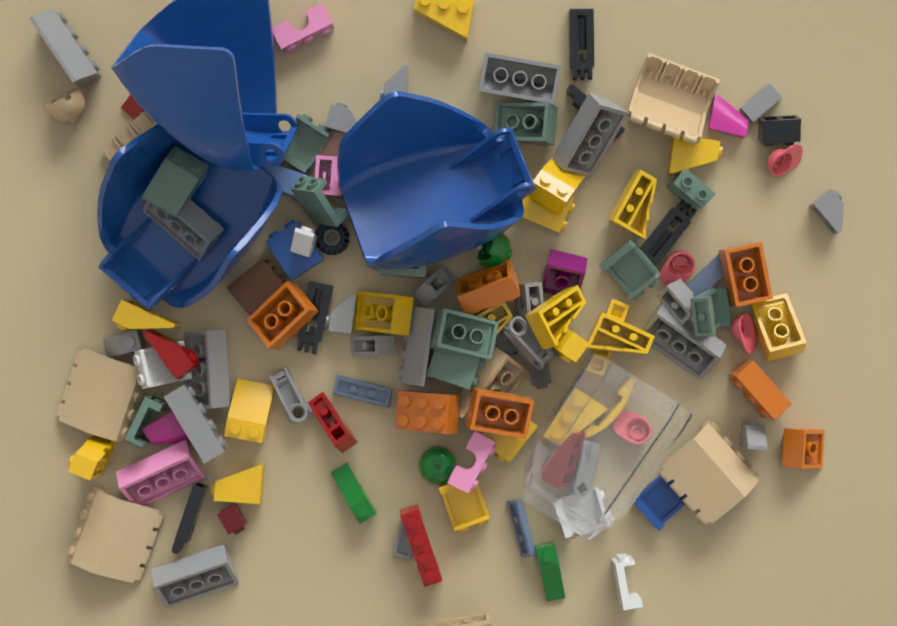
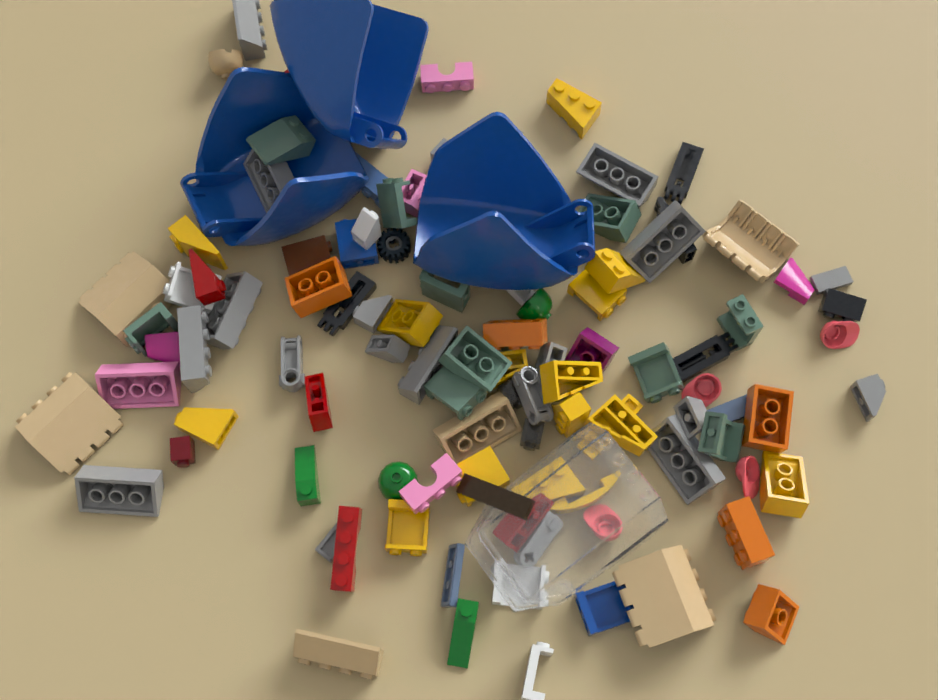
camera: 25 degrees right, 20 degrees down
(92, 458) = (87, 339): yellow wedge -> none
(124, 343) = (169, 257): light grey slope -> none
(190, 516) = (144, 432): black hinge -> none
(249, 411) = (247, 362): yellow slope -> none
(306, 144) = (402, 160): sand green panel -> none
(362, 391) = (359, 386): sand blue tile -> none
(427, 412) = (410, 422): orange brick -> none
(434, 285) = (467, 316): light grey slope -> none
(499, 413) = (478, 445): orange brick -> none
(534, 452) = (495, 496): none -> dark brown tile
(634, 204) = (679, 320): yellow wedge -> none
(689, 156) = (759, 295): yellow slope -> none
(753, 436) = (722, 579): light grey slope -> none

